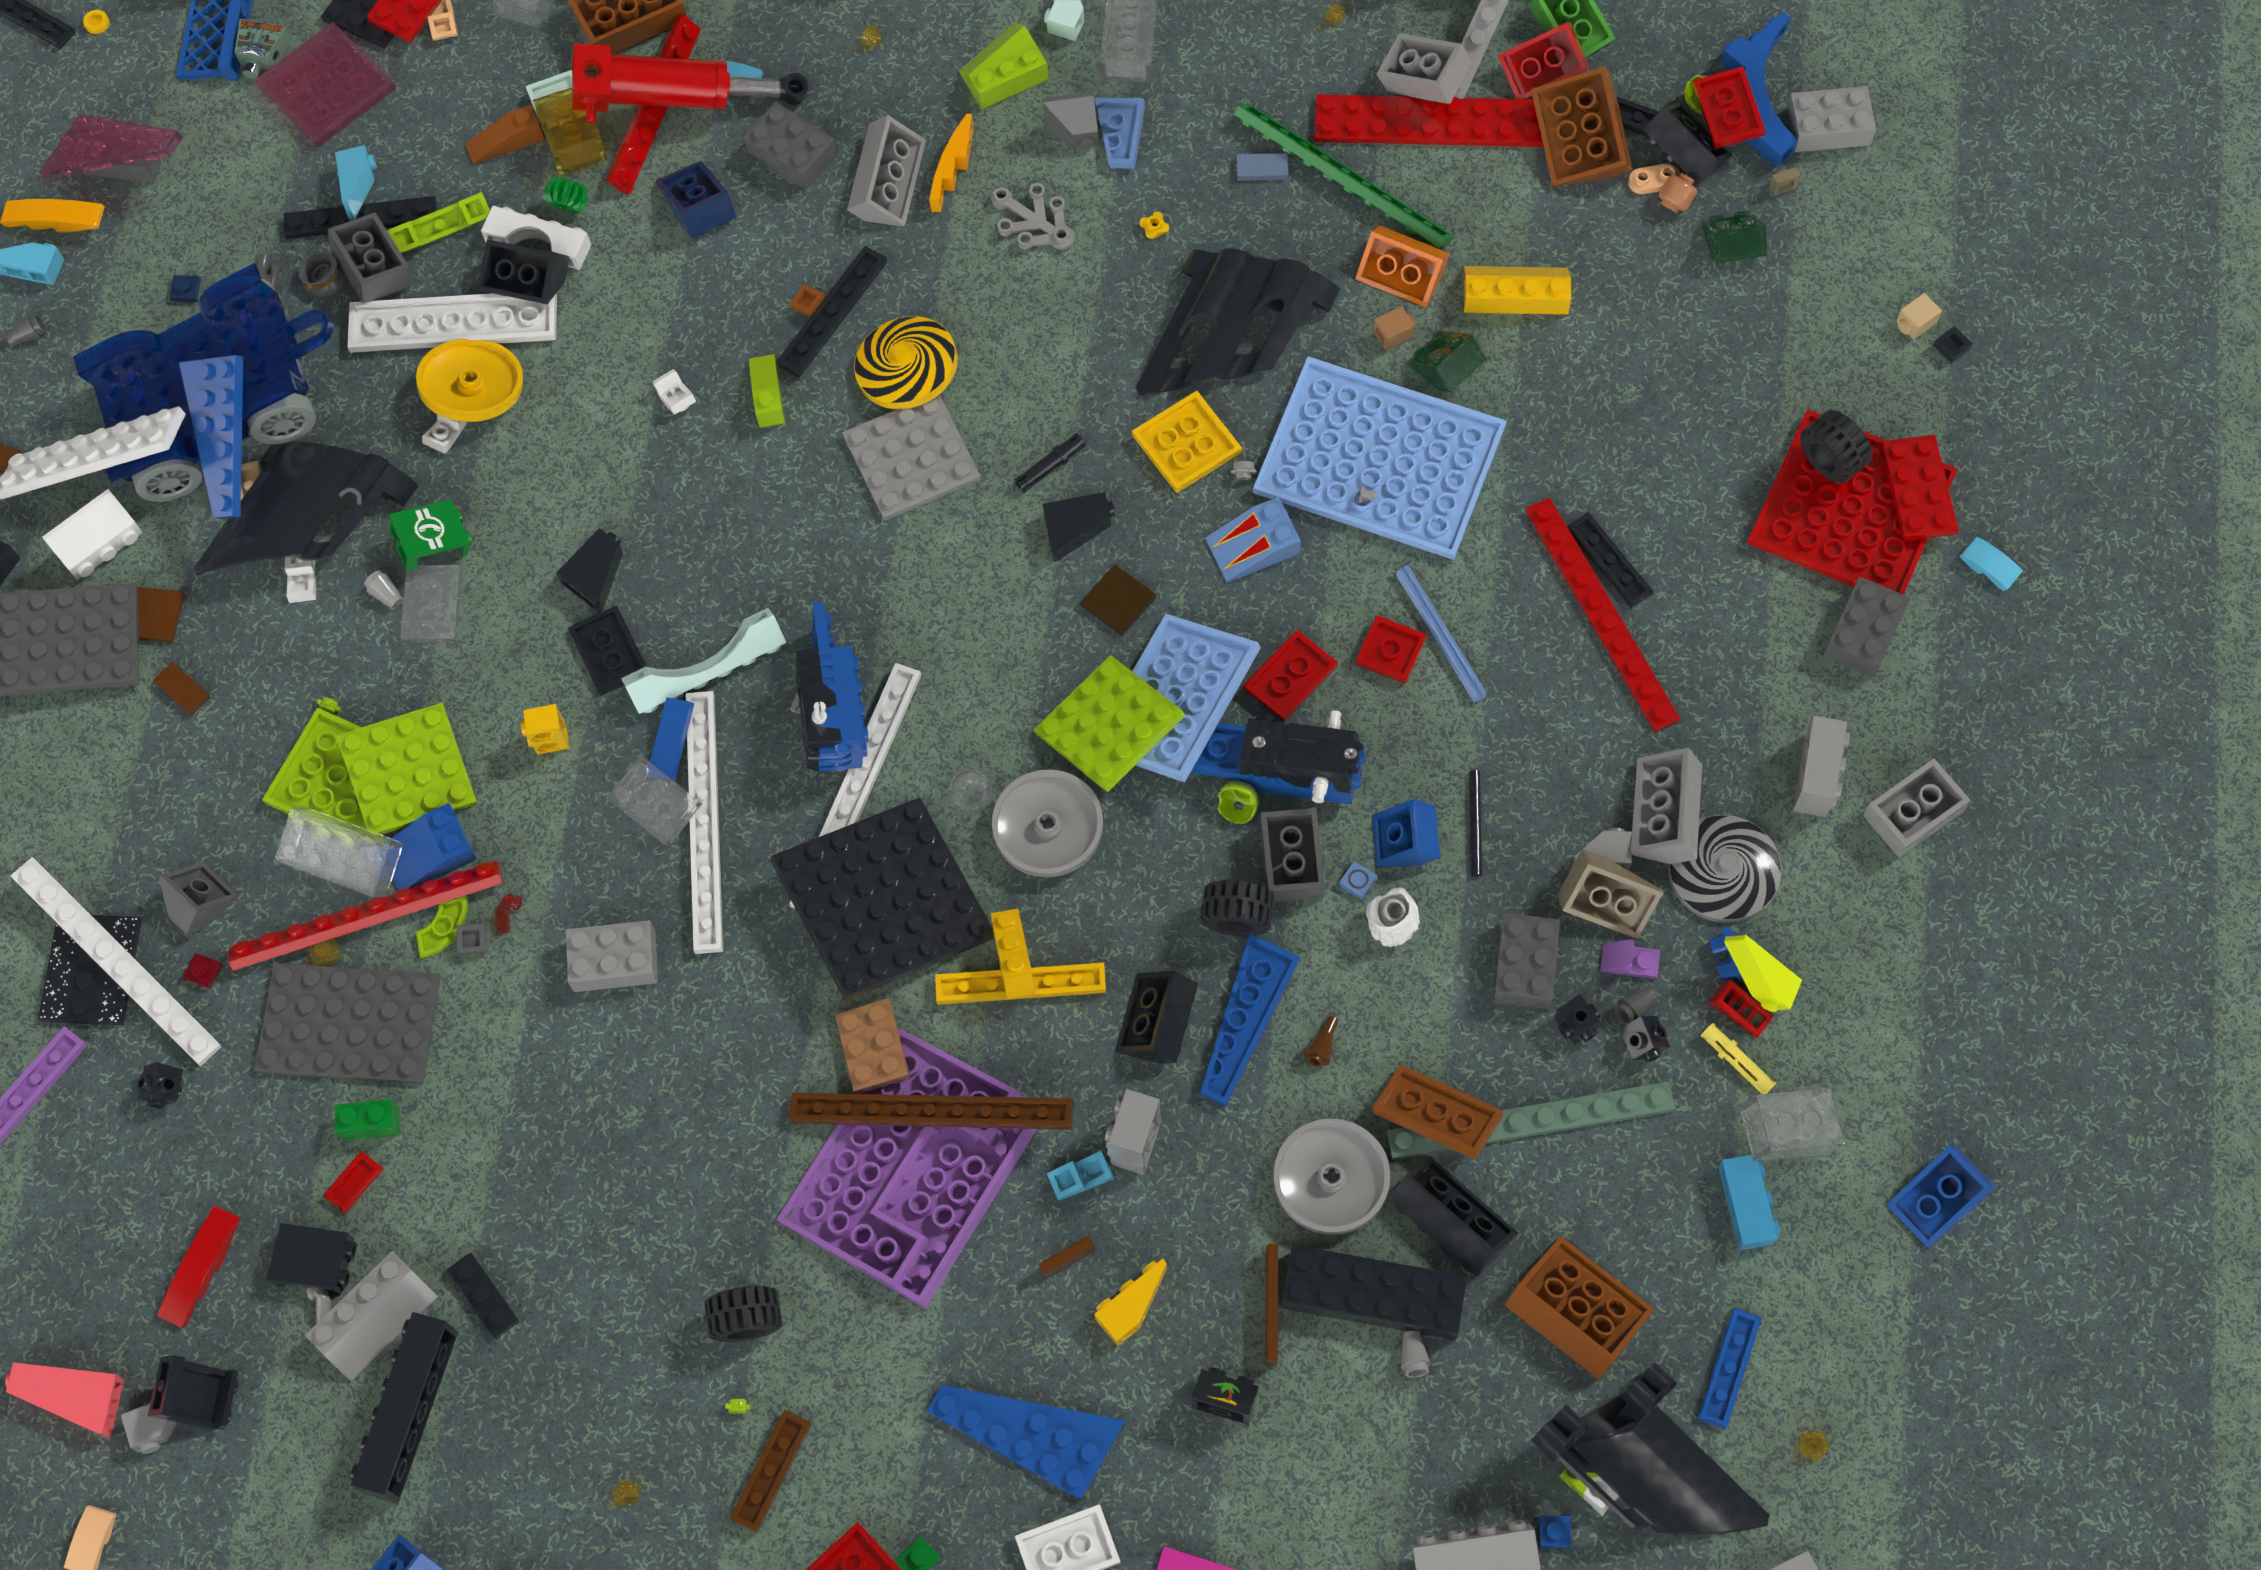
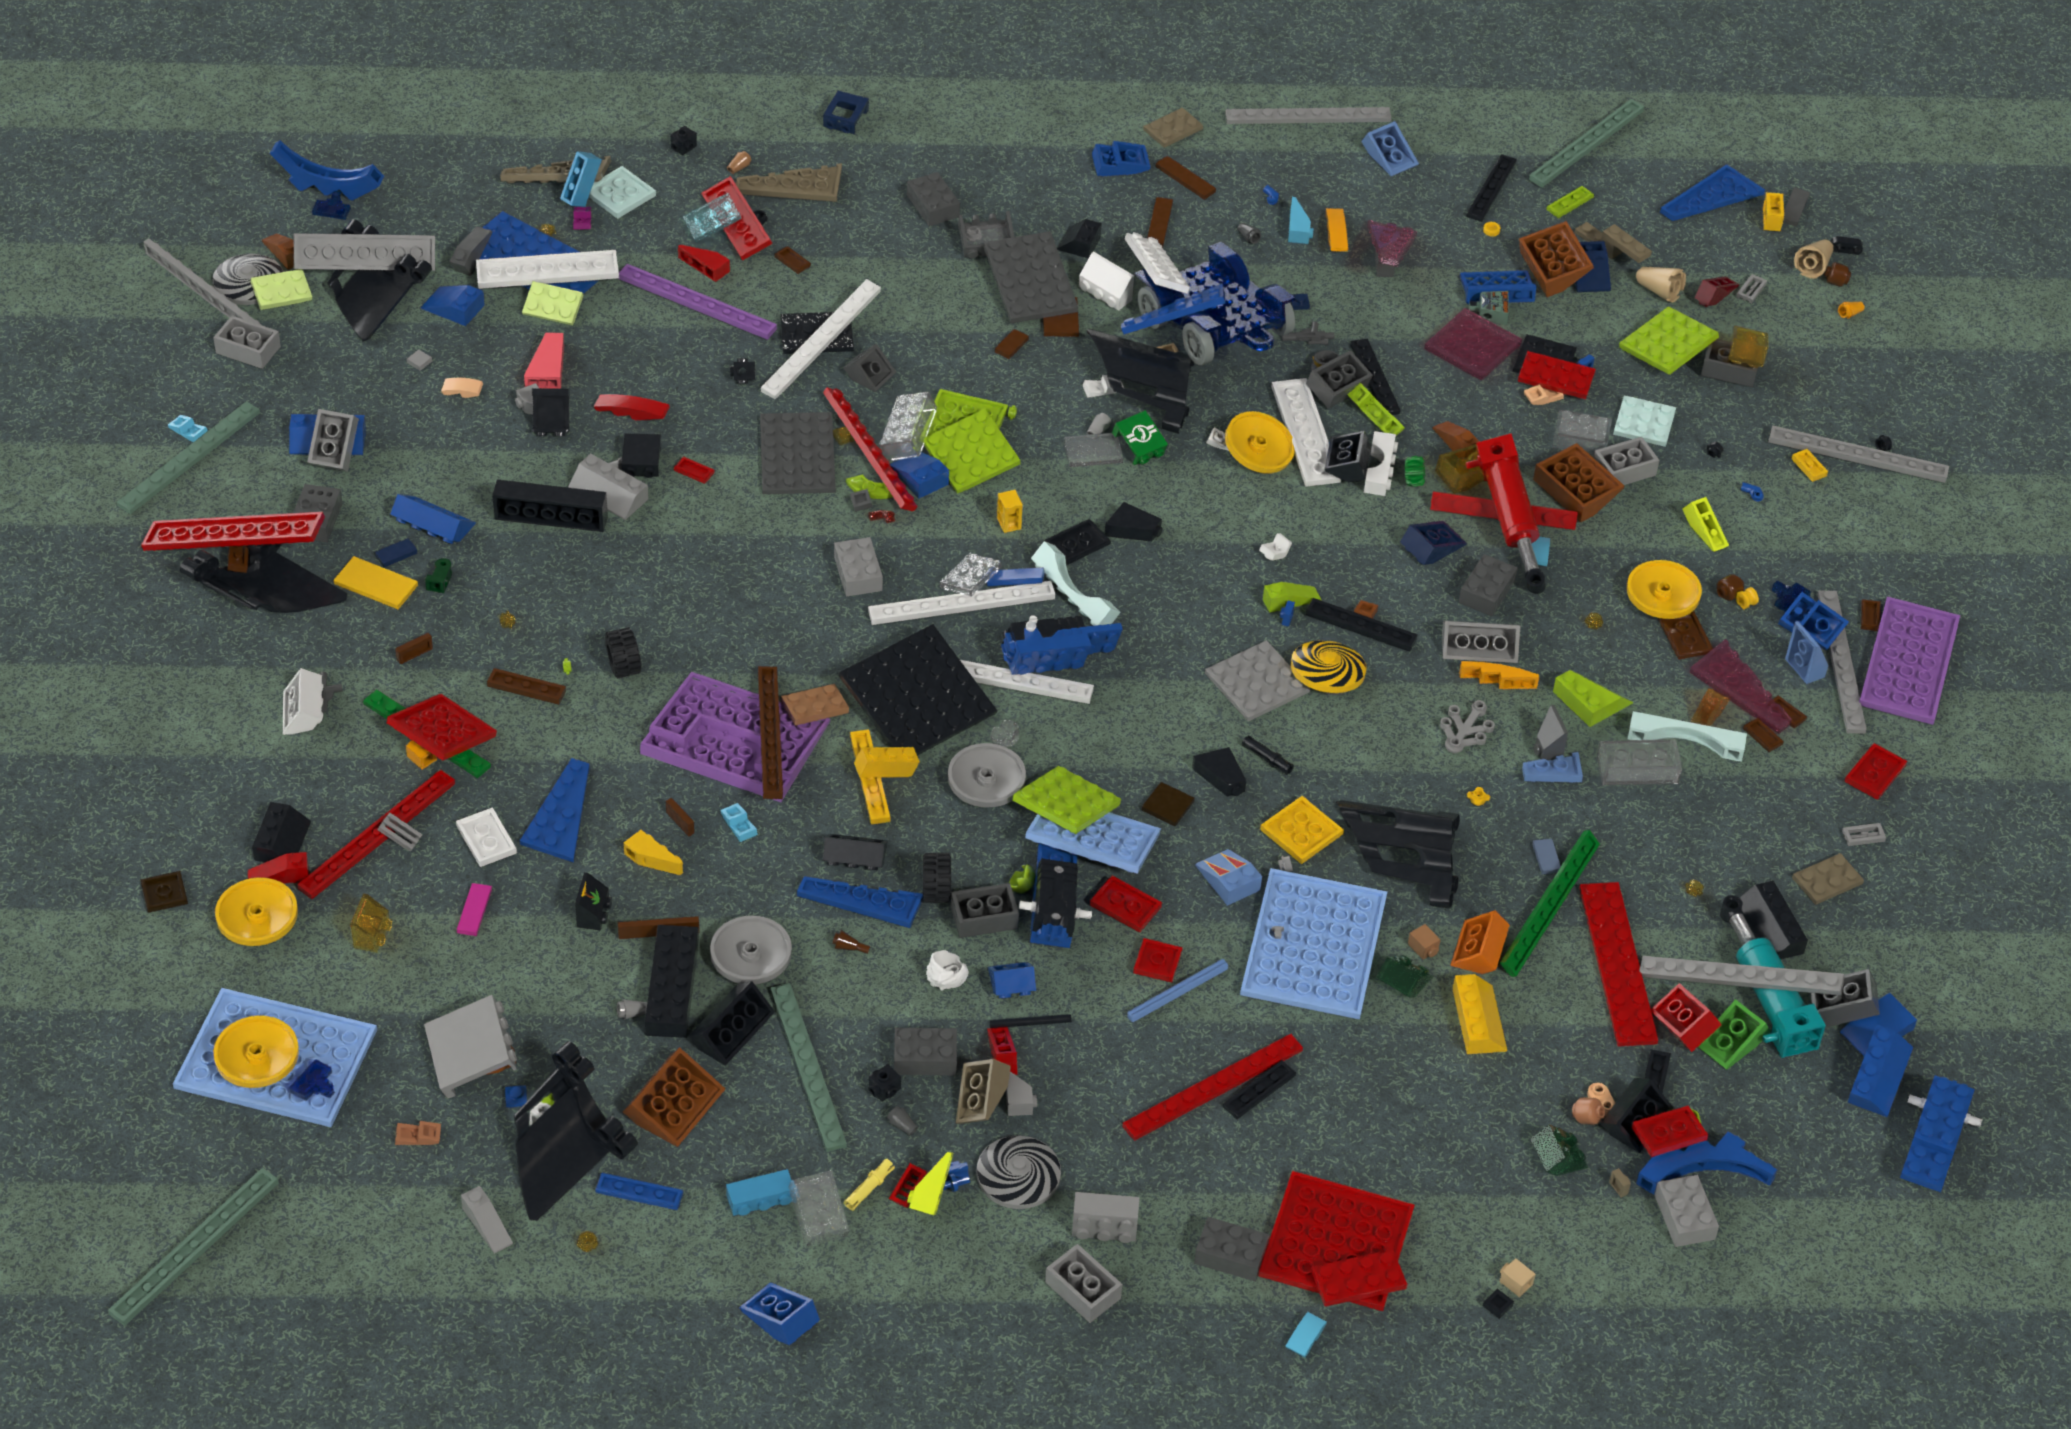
camera: 75 degrees right, 20 degrees down
(202, 971) = (822, 381): dark red plate -> none
(355, 177) = (1400, 365): medium azure slope -> none
(367, 1119) = (733, 467): green brick -> none
(483, 1295) = (627, 539): black plate -> none
(799, 397) = (1287, 613): none -> blue plate
(1134, 1131) = (765, 832): light grey brick -> none
(1358, 880) = (975, 955): medium blue tile -> none
(1424, 68) = (1651, 935): light grey brick -> none
(1438, 1112) = (804, 1004): dark orange plate -> none
(1529, 862) = (1003, 1047): none -> red slope
(1582, 128) = (1628, 1043): dark orange slope -> none
(1628, 960) = (937, 1119): medium lavender slope -> none
(1645, 1038) = (875, 1123): black brick -> none
(1667, 807) = (1057, 1126): light grey slope -> none
(1836, 446) = (1373, 1206): black tyre -> none

